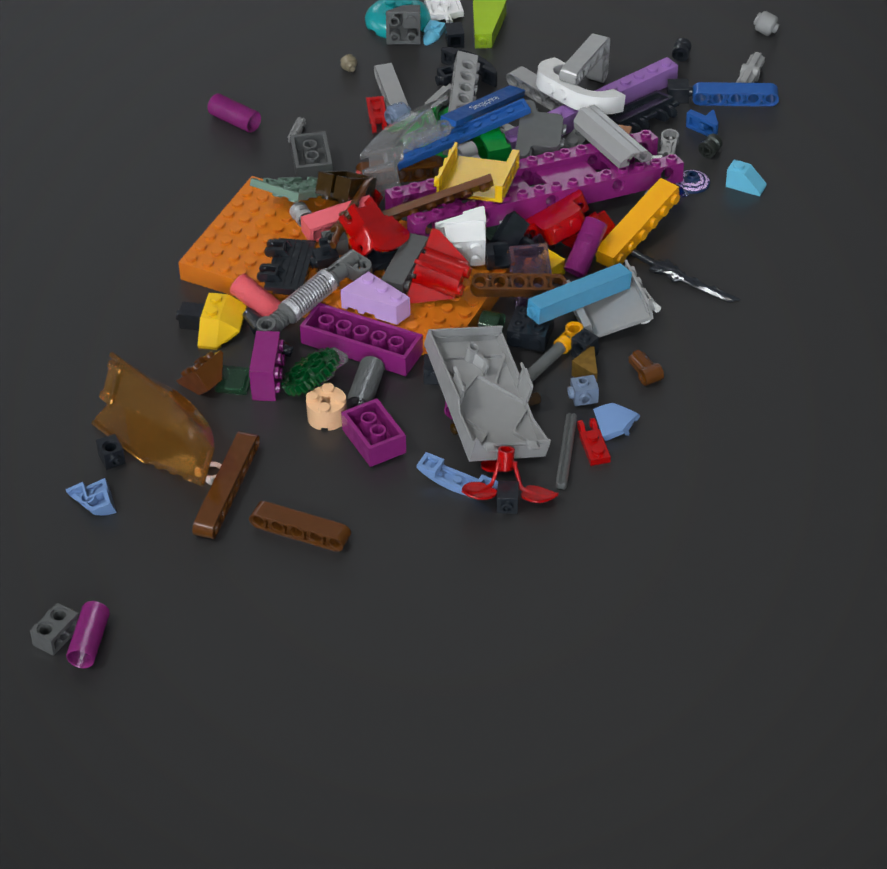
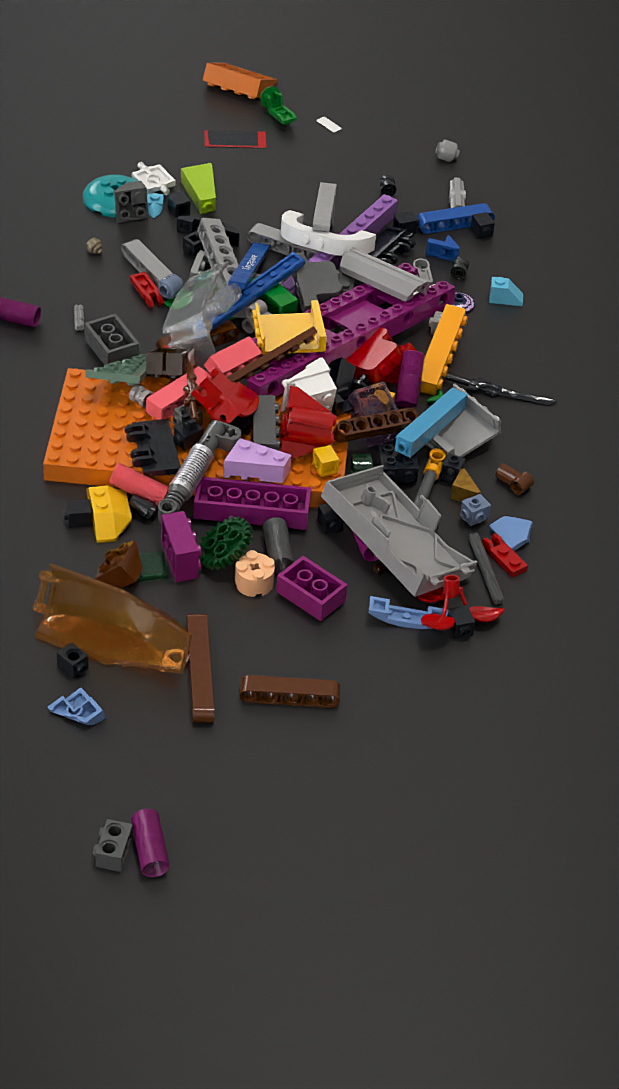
camera: 25 degrees left, 0 degrees up
(401, 191) = (234, 357): none -> coral brick
(447, 310) = (325, 461): none -> yellow brick
(760, 106) = (482, 225): none -> black brick

